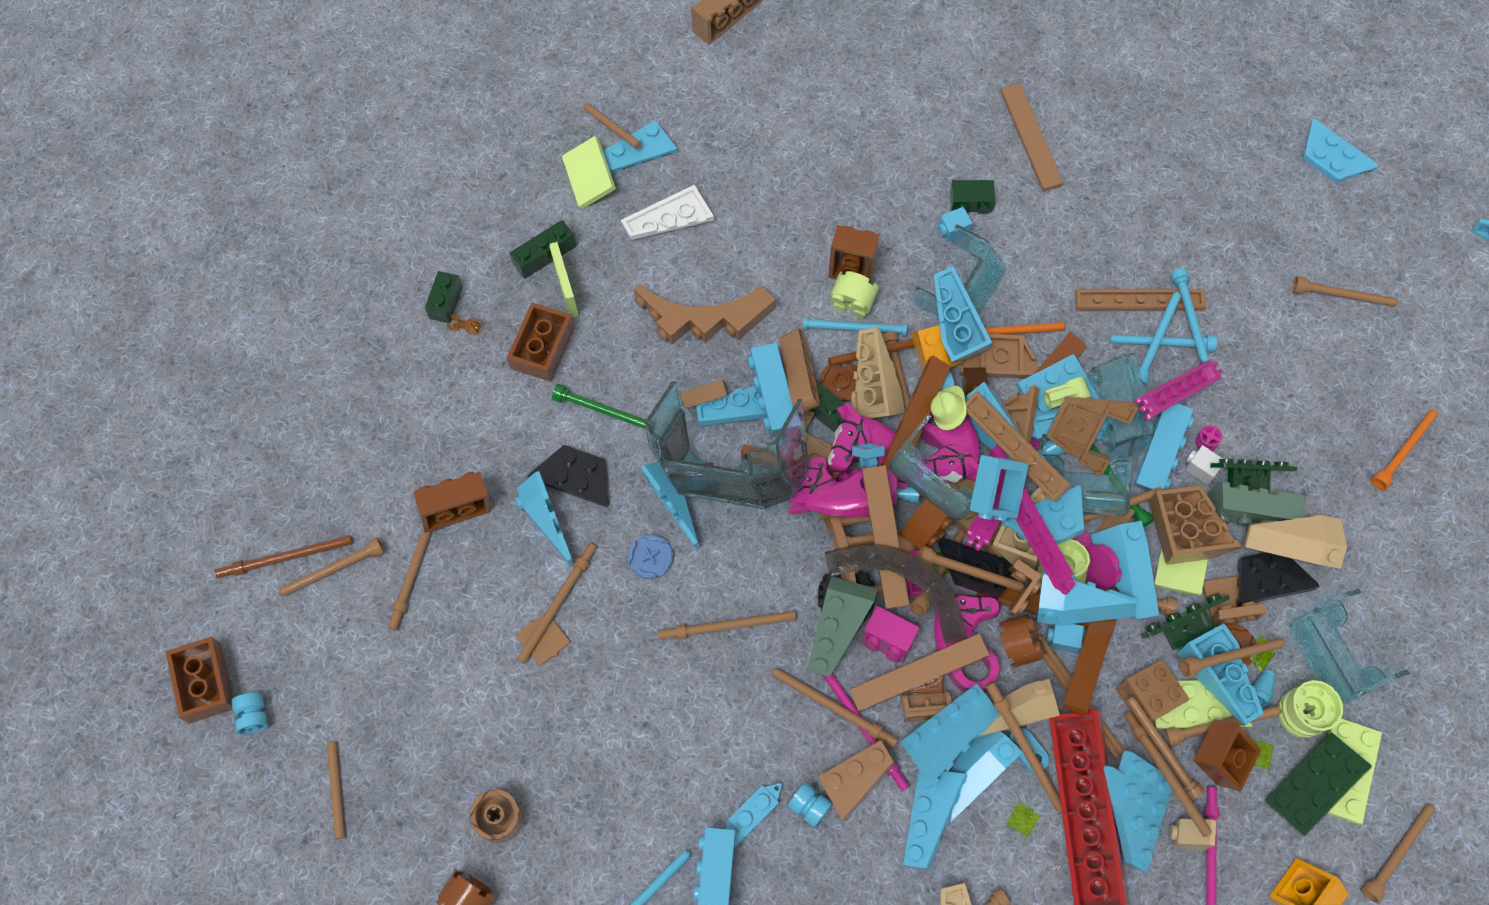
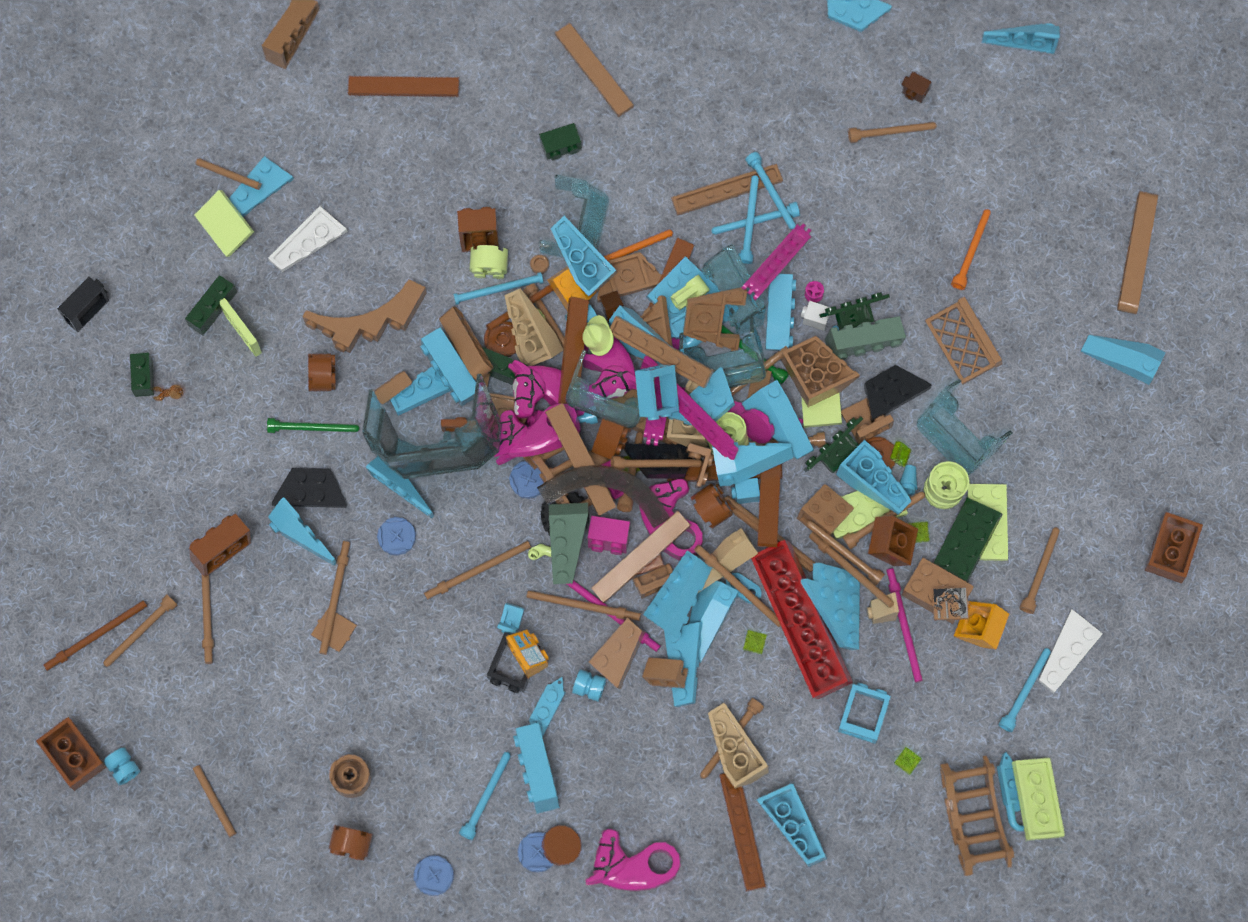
camera: 20 degrees left, 5 degrees up
(417, 214) = (84, 303): none -> black window
(540, 341) = (240, 387): dark orange brick -> none
(631, 353) = (319, 372): none -> dark orange brick
(745, 694) = (511, 618): none -> medium azure bracket
(745, 727) = (497, 679): none -> black window
(750, 742) = (528, 655): none -> light orange slope
(803, 626) = (539, 551): none -> yellowish green arm
(814, 541) = (525, 480): none -> medium blue tile
(824, 95) = (403, 86): none -> dark orange tile
(868, 453) = (545, 396): medium azure tile -> none
(905, 821) = (665, 672): none -> medium nougat hinge
(908, 314) = (539, 264): none -> medium nougat tile
(949, 220) = (553, 167): medium azure brick -> none
(1192, 666) = (847, 482): medium nougat piece -> none
(1265, 834) = (927, 577): none -> medium nougat brick
(1280, 857) = (950, 603): none -> piece
(1308, 539) = (911, 351): tan wedge -> none
(1385, 255) = (915, 87): none -> reddish brown brick
(1392, 548) = (978, 333): none -> medium nougat fence

